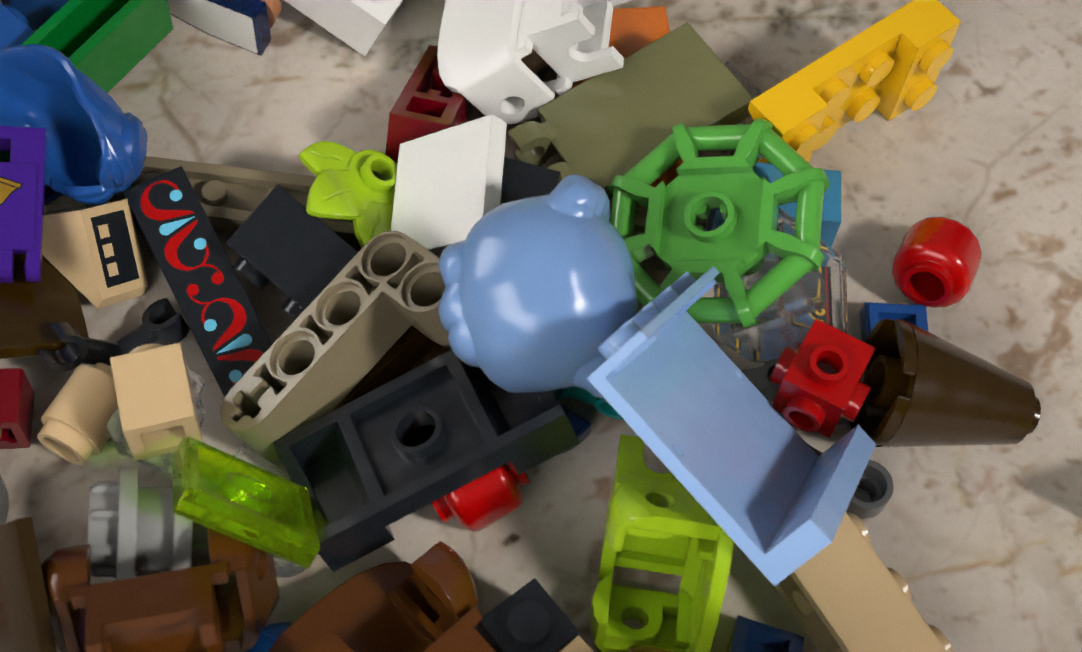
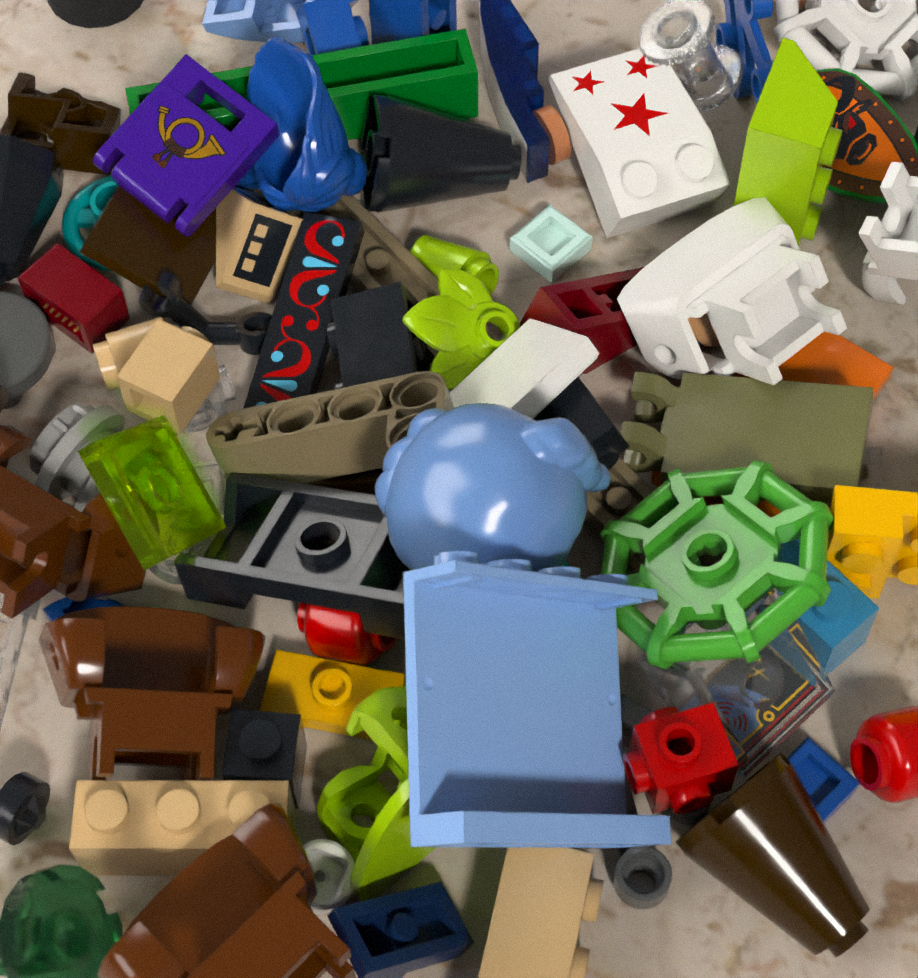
camera: 50 degrees right, 0 degrees up
(177, 79) = (430, 156): none -> black cone
(276, 151) = (441, 254): none -> lime cone
(330, 88) = (550, 243): none -> light aqua tile
(524, 547) = (322, 689): none -> yellow plate

